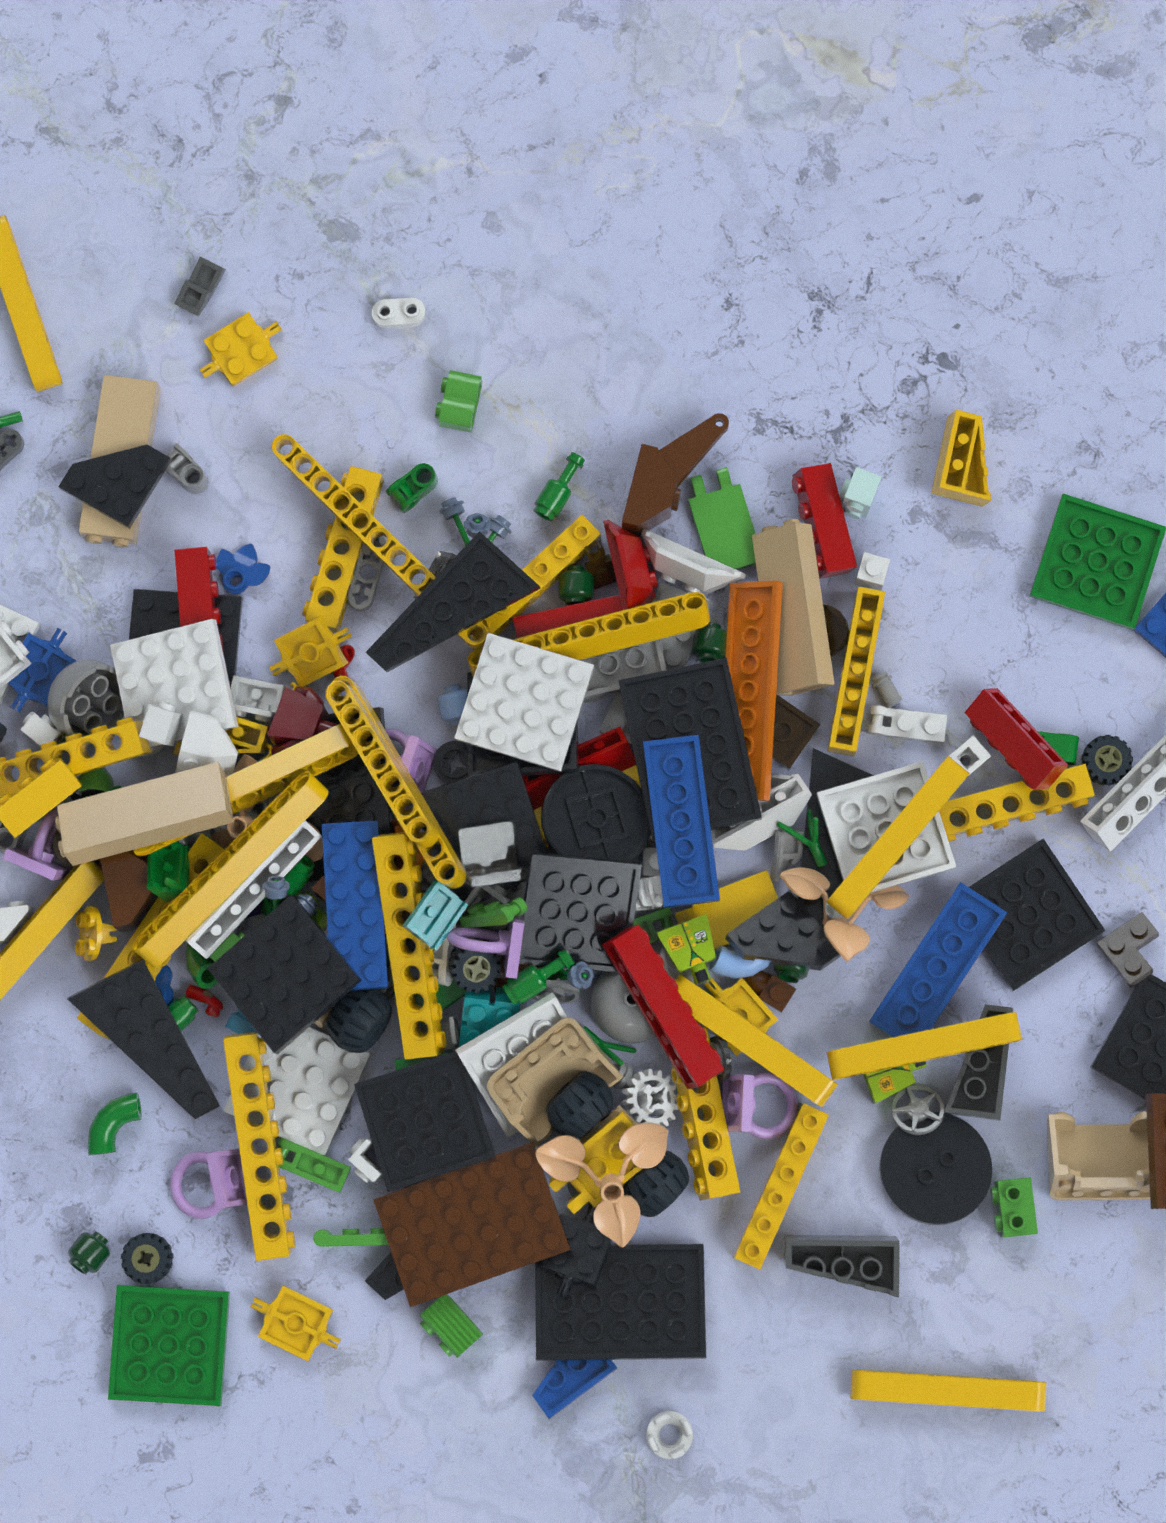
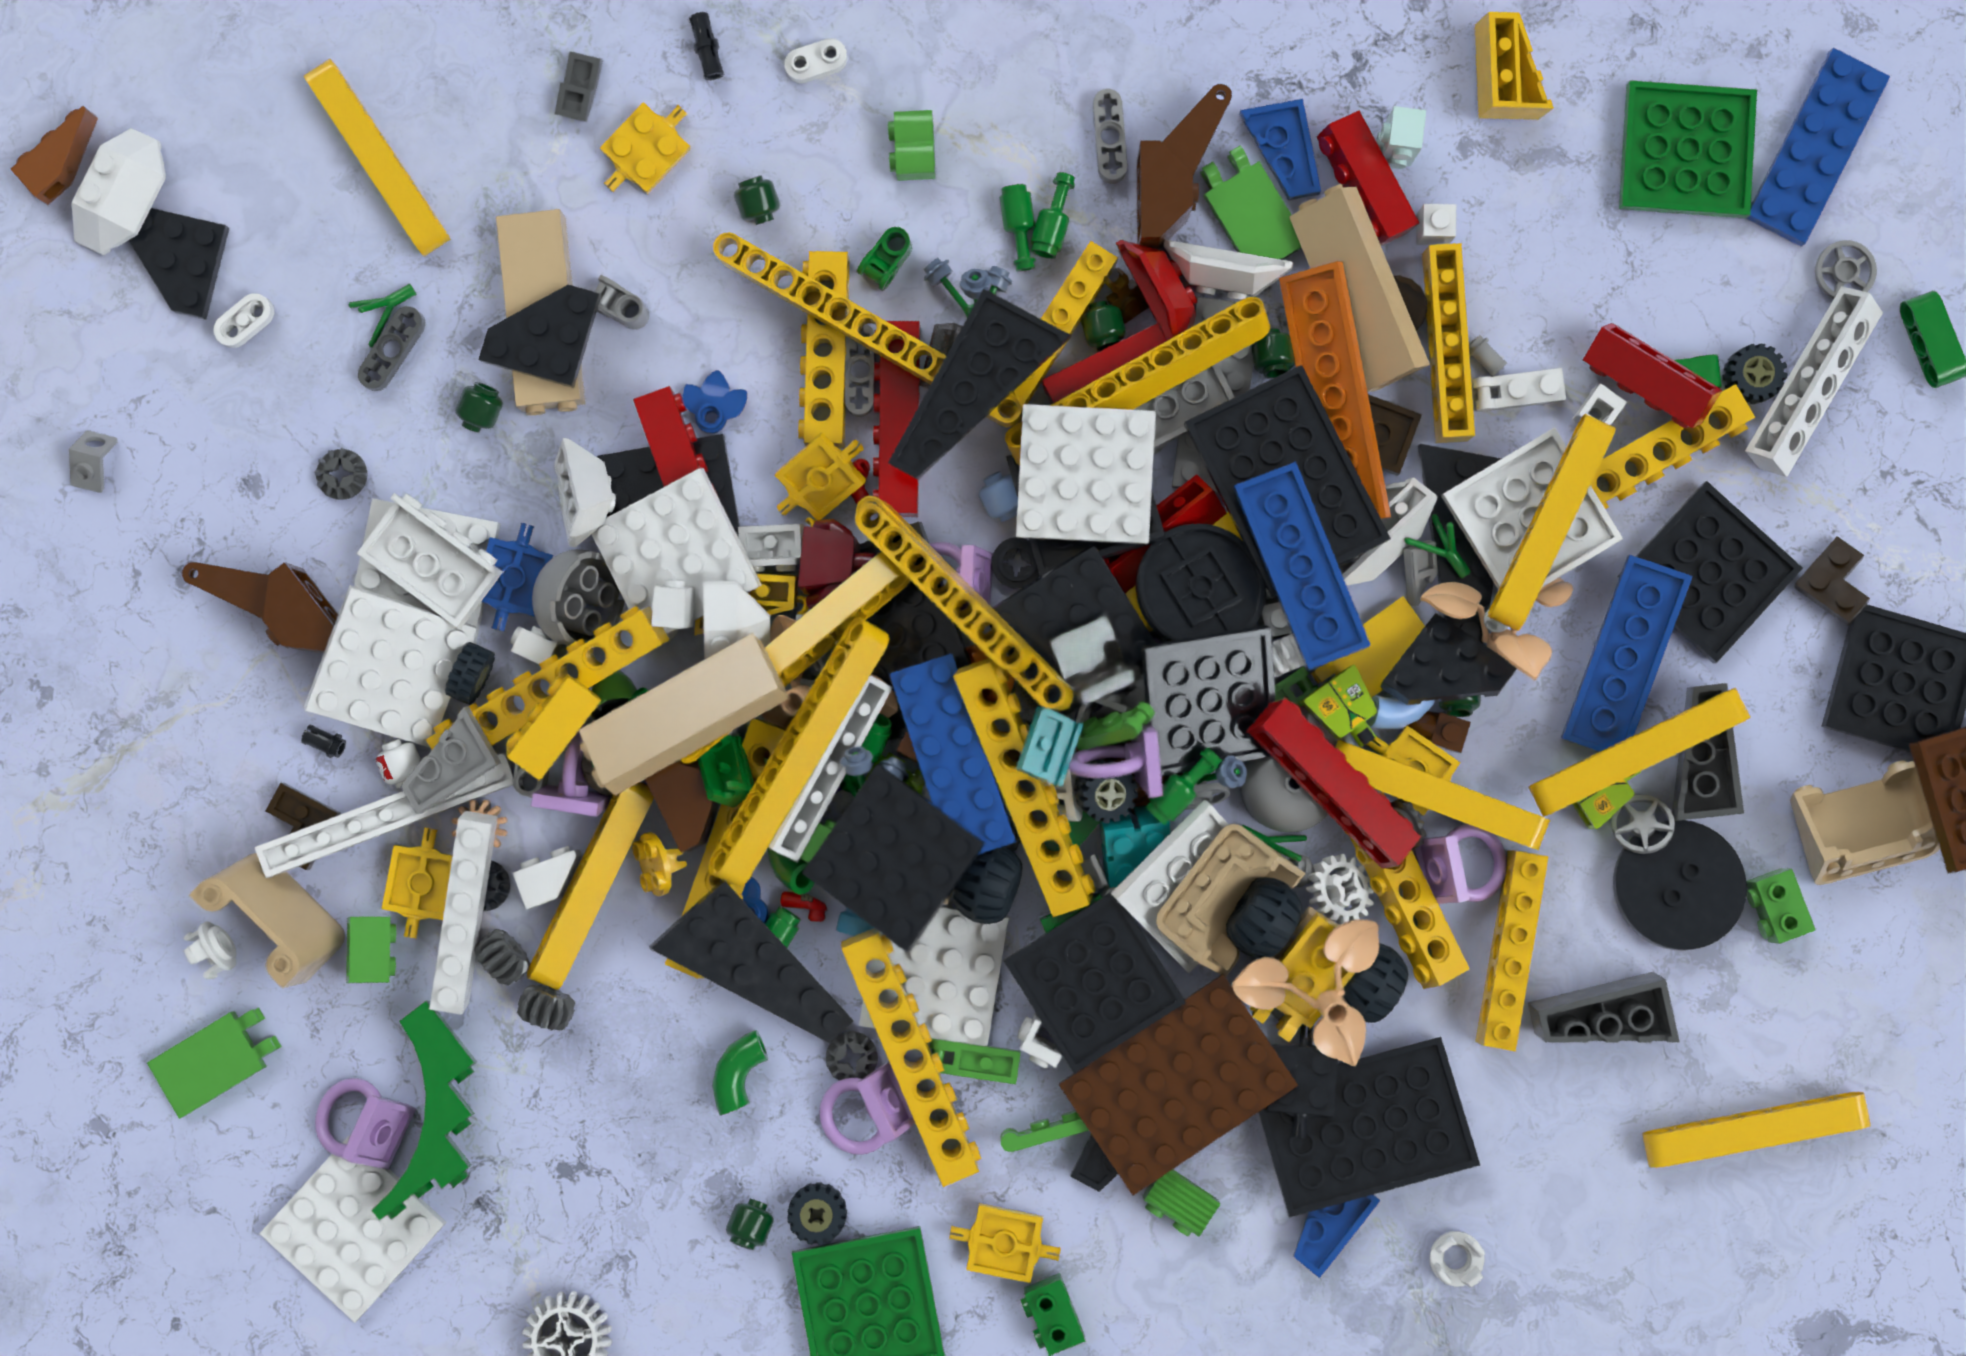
camera: 15 degrees left, 5 degrees up
(48, 525) = (479, 407): none -> dark green head
(114, 614) = (582, 491): none -> white wedge
(219, 1127) = (859, 1044): none -> dark grey gear
(312, 279) = (706, 46): none -> black pin
(320, 413) = (757, 200): none -> dark green head
(320, 1393) = (1053, 1314): none -> green brick
(390, 603) = (897, 405): none -> red brick
(529, 481) = (1018, 219): none -> green piece
(619, 413) = (1116, 113): none -> light grey beam
(765, 475) = (1286, 145): none -> blue wing

